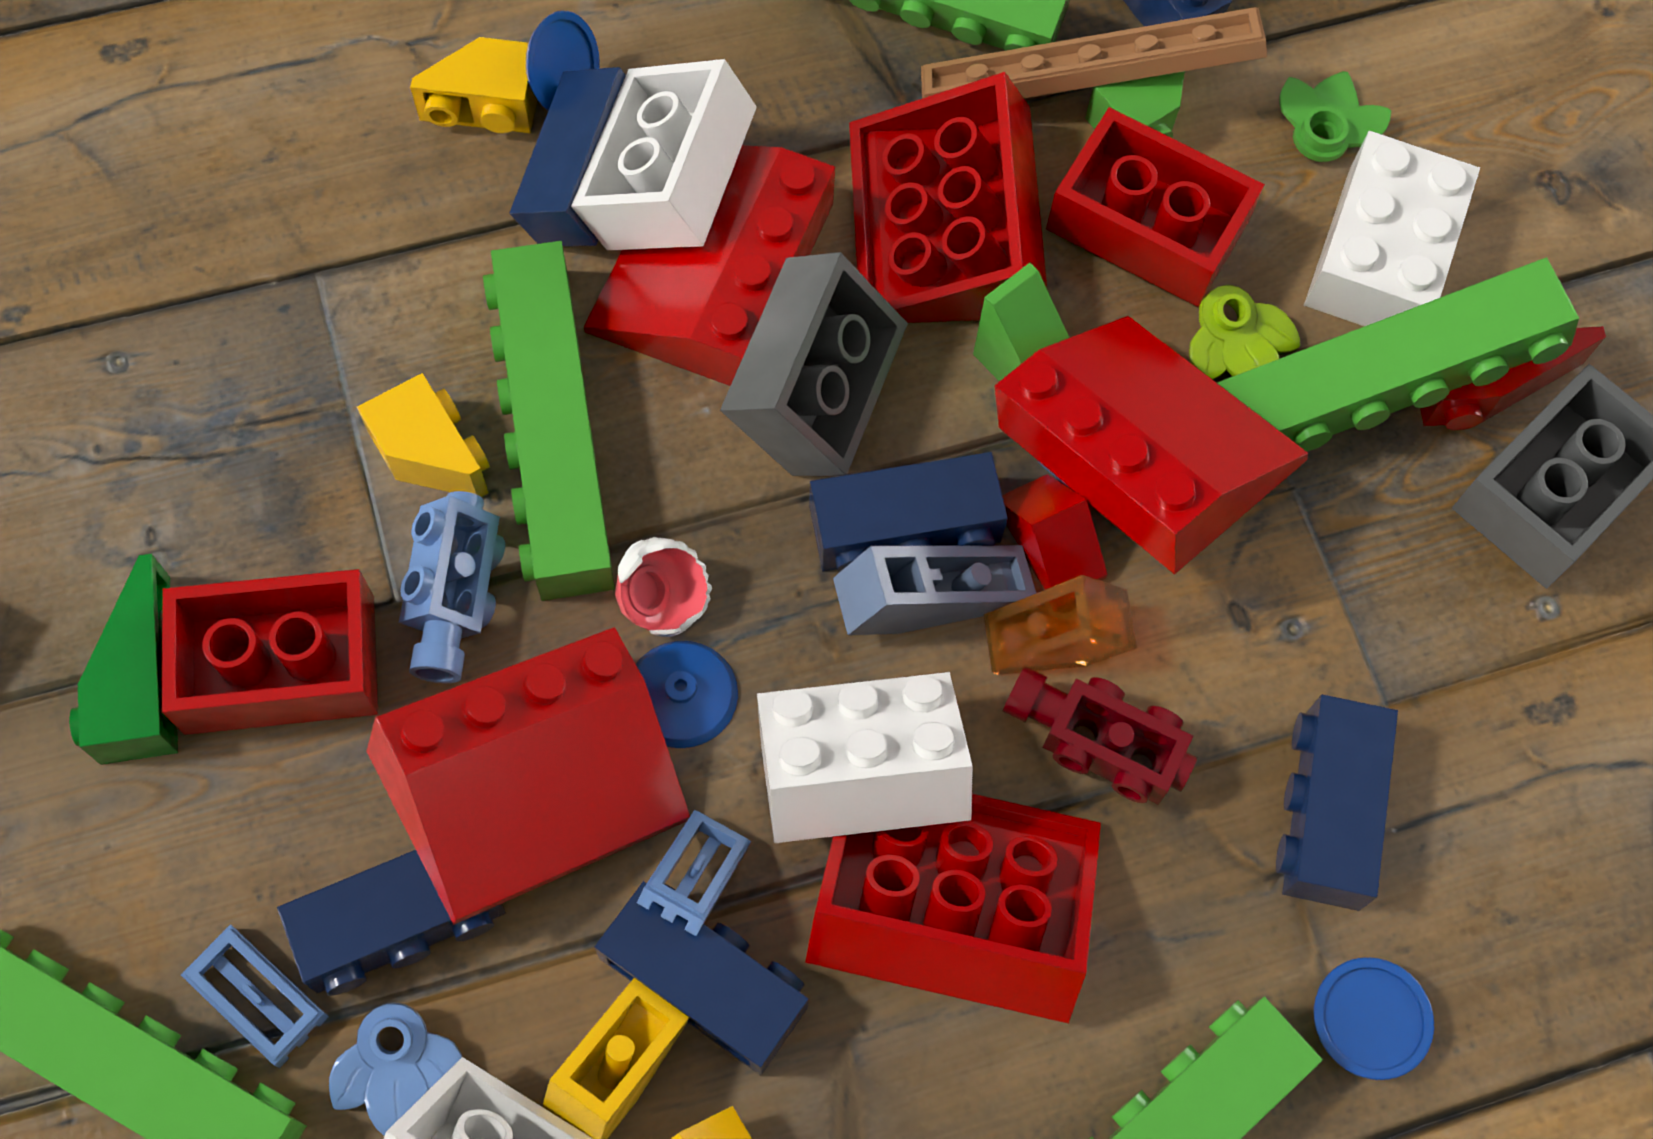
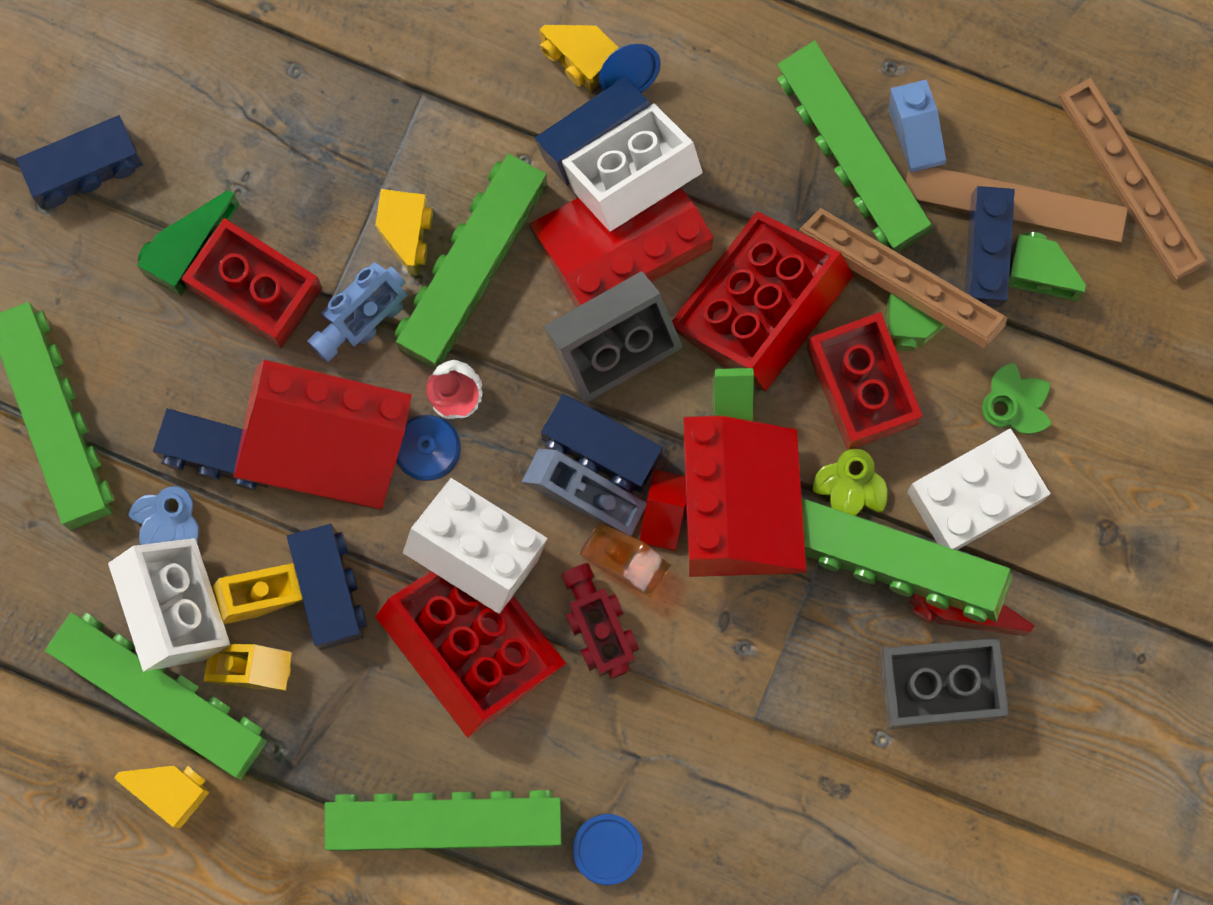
camera: 45 degrees right, 10 degrees up
(294, 1033) = (136, 468): medium blue tile -> none
(677, 901) = (335, 545): medium blue tile -> none
(1338, 802) = (681, 742): dark blue brick -> none

